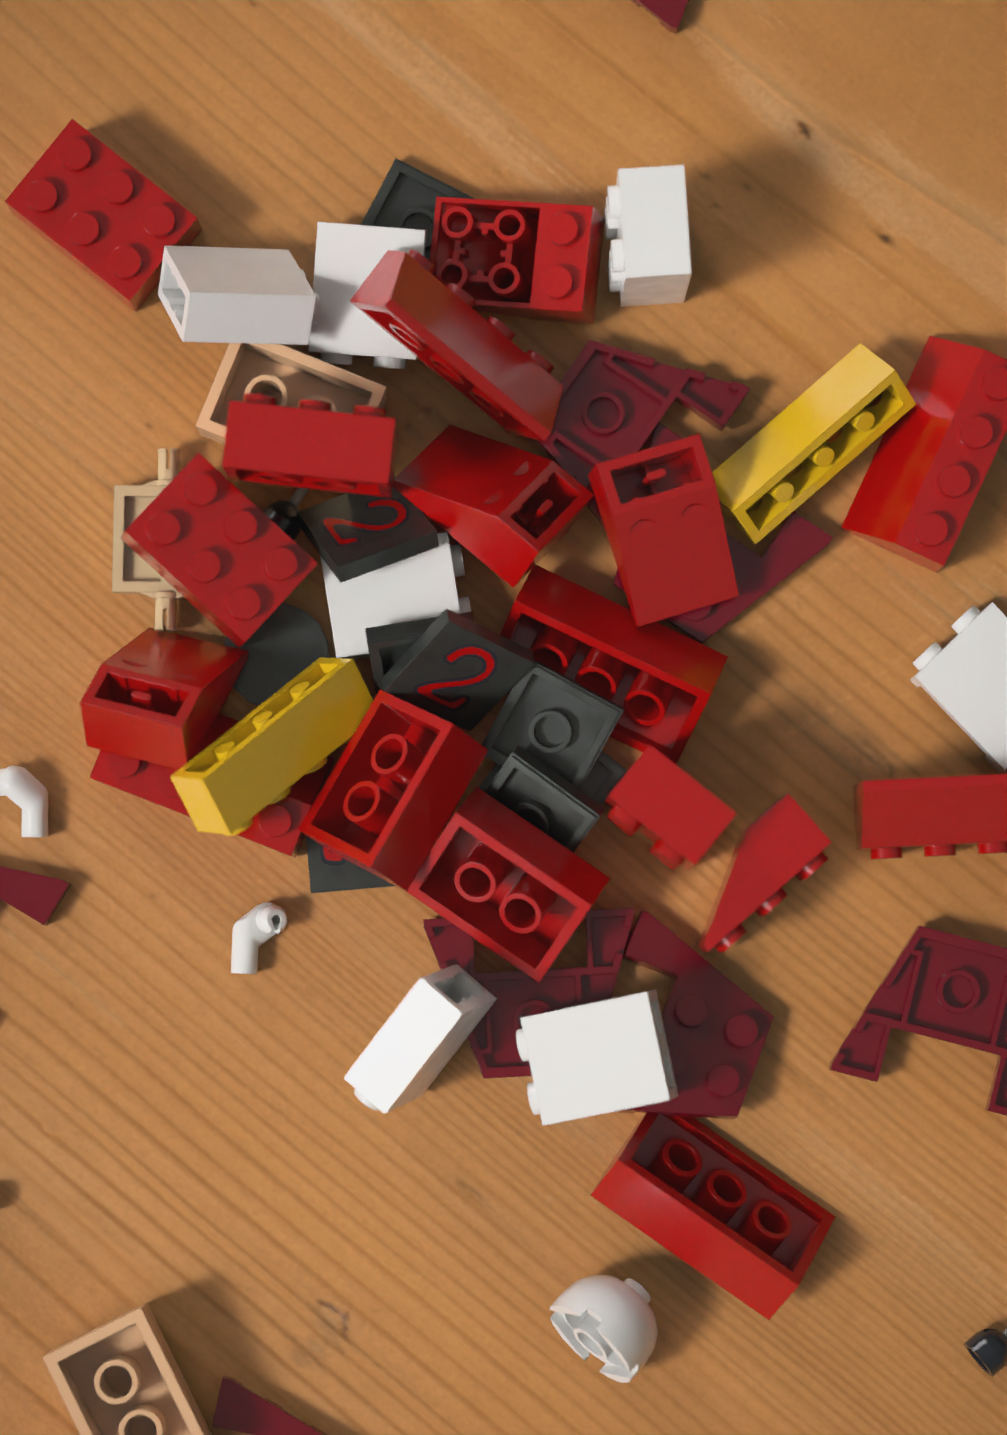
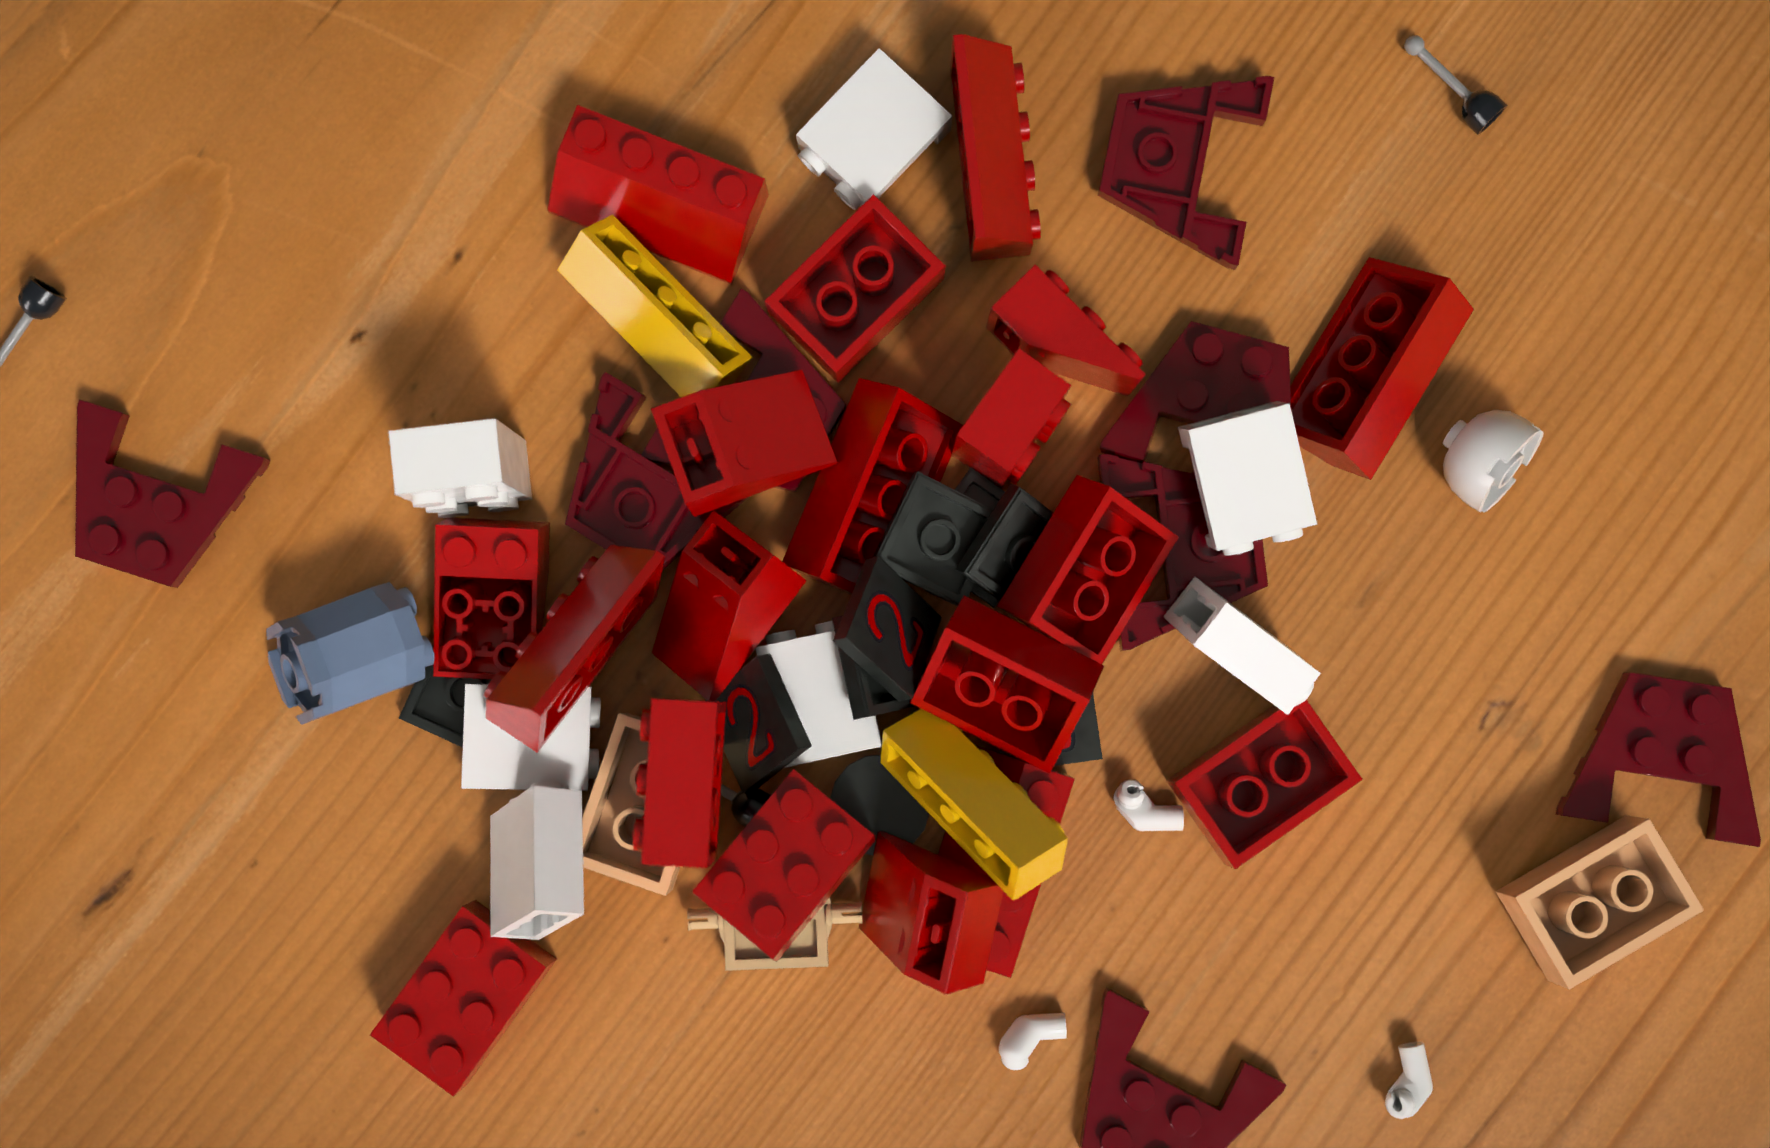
camera: 90 degrees left, 0 degrees up
(276, 1056) = (1263, 781): none -> red brick
(466, 111) = (349, 651): none -> sand blue brick
(822, 656) = (855, 288): none -> red brick

